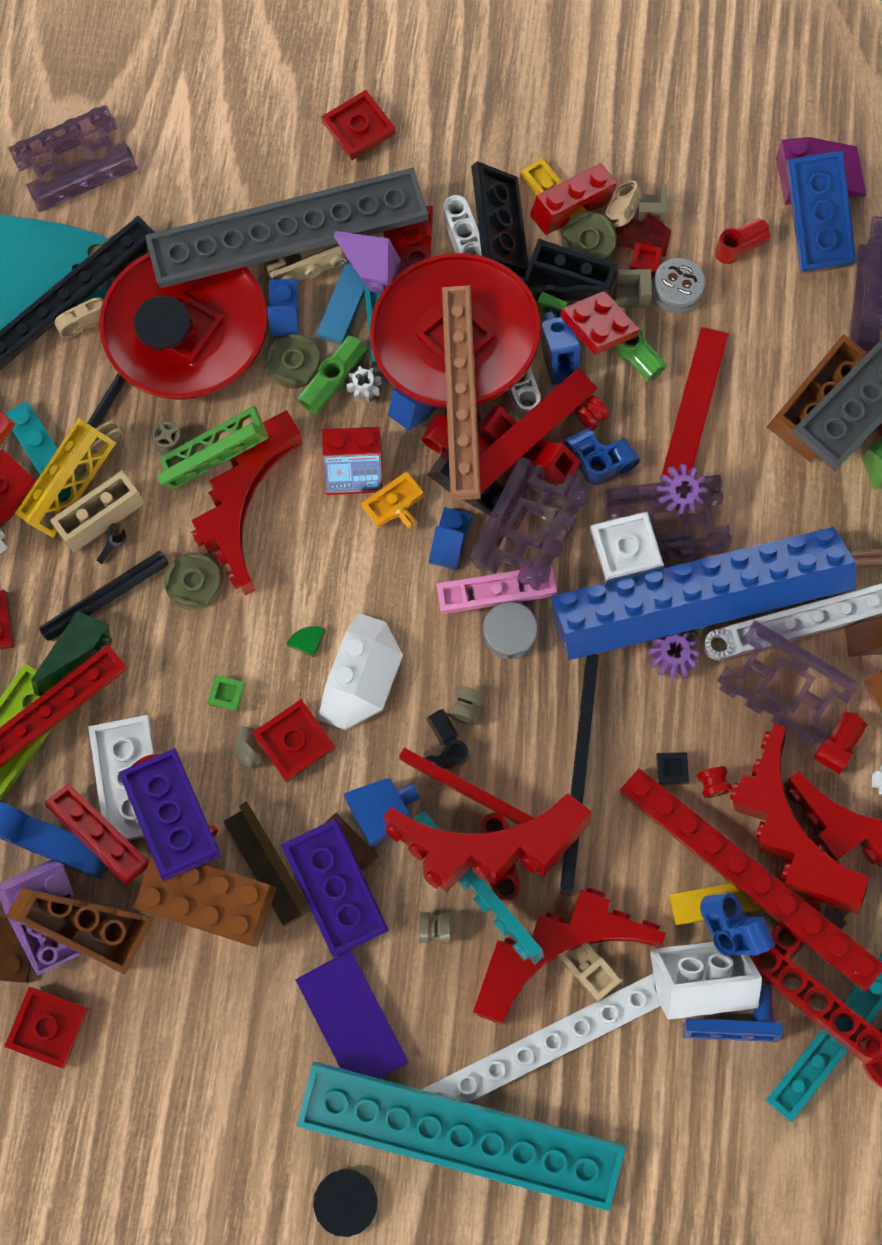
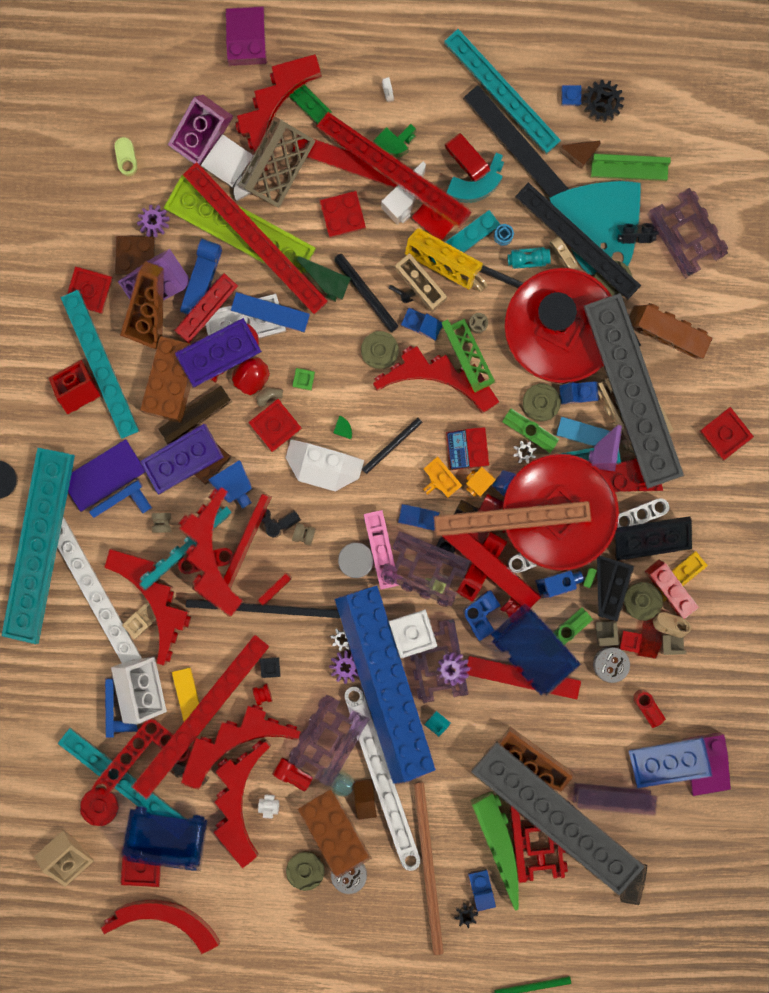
camera: 80 degrees right, 15 degrees up
(45, 402) = (500, 235): none -> dark azure wheel
(60, 229) = (646, 233): none -> black hinge
(80, 350) = (538, 257): none -> teal piece
(116, 735) = (270, 312): none -> blue tile
(162, 515) = (422, 324): none -> blue slope
(167, 1014) = (100, 364): none -> teal plate
(202, 1059) = (74, 387): none -> red slope
(207, 180) = (670, 330): none -> dark orange wedge
(212, 773) = (251, 375): none -> red hair
(340, 572) = (392, 445): none -> black bar
(378, 973) = (132, 490): none -> blue piece
(403, 447) = (479, 482): none -> light orange brick
(549, 748) = (269, 594): none -> red tile
(599, 322) = (571, 610): red plate -> none
(631, 665) = (337, 642): none -> white gear
(654, 372) = (535, 650): none -> clear blue windscreen
(731, 928) = (168, 706): blue piece -> none
(762, 525) = (437, 723): none -> teal plate
(856, 664) = (343, 784): none -> clear light blue piece

